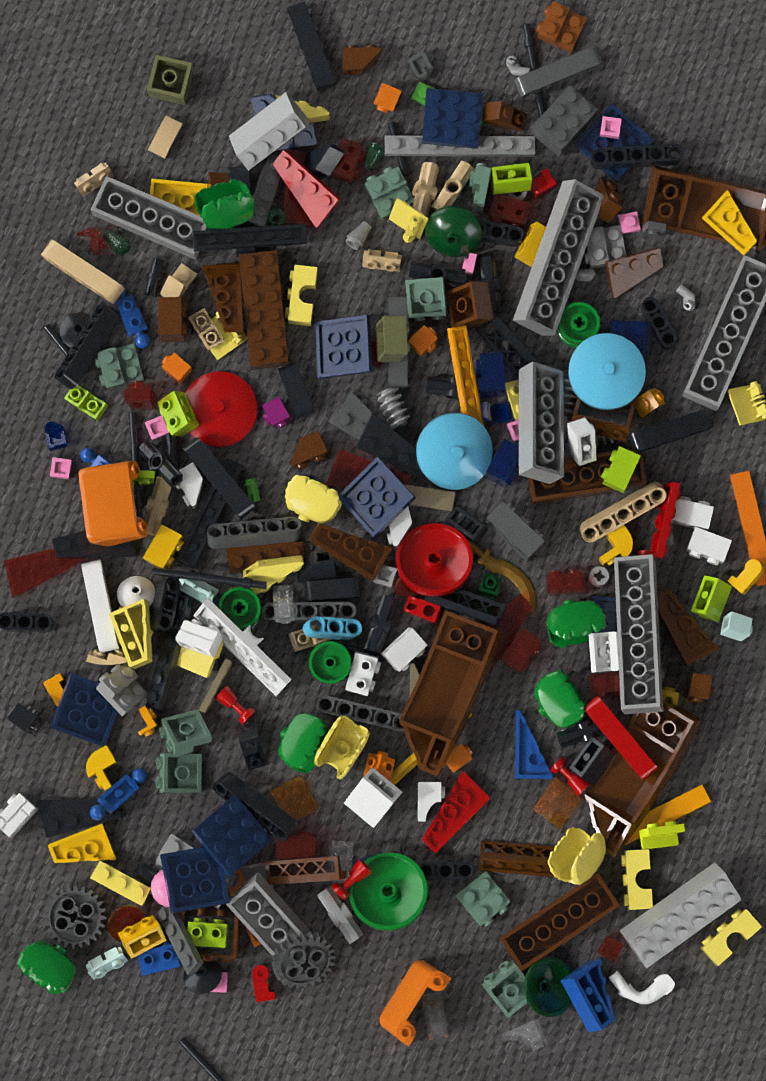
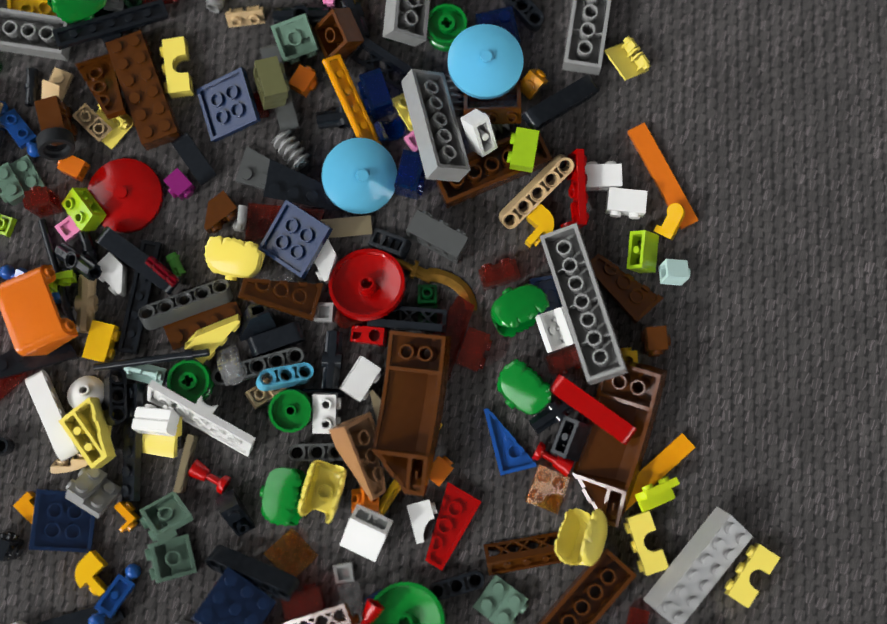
camera: 15 degrees left, 0 degrees up
(169, 344) = (54, 135): none -> black tyre
(241, 495) = (162, 271): none -> dark red axle
(325, 468) = (240, 224): none -> light grey arm
(340, 831) = (343, 573): none -> light grey tile
(383, 710) = (354, 443): none -> medium nougat wedge
(597, 579) = (529, 263): light grey wheel -> none

